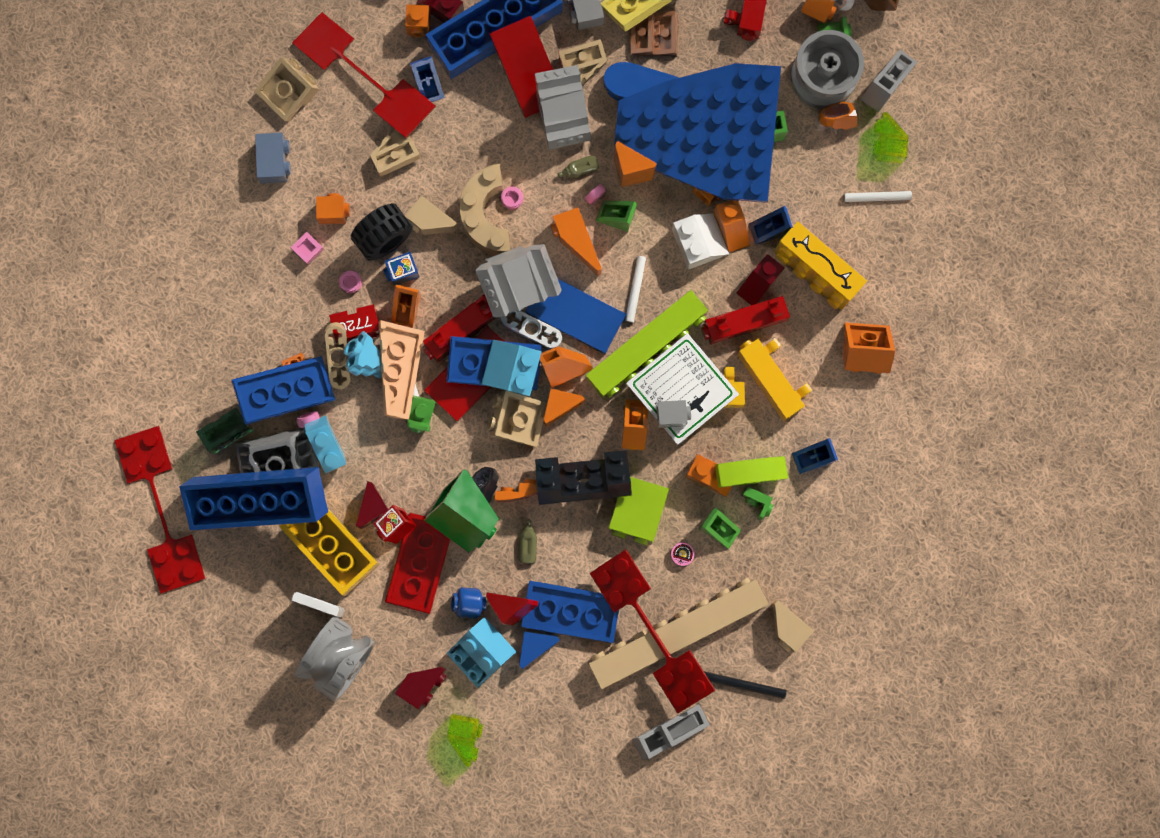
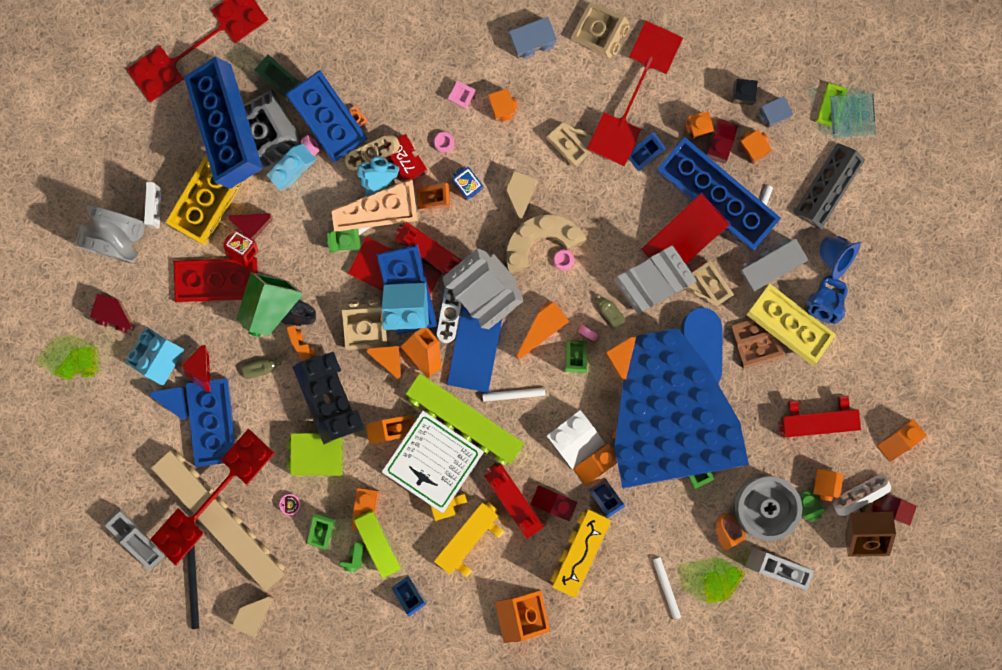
camera: 85 degrees right, 5 degrees up
(381, 232) = (492, 155): black tyre -> none
(468, 603) = (193, 331): blue head -> none
(673, 413) = (405, 459): light grey brick -> none

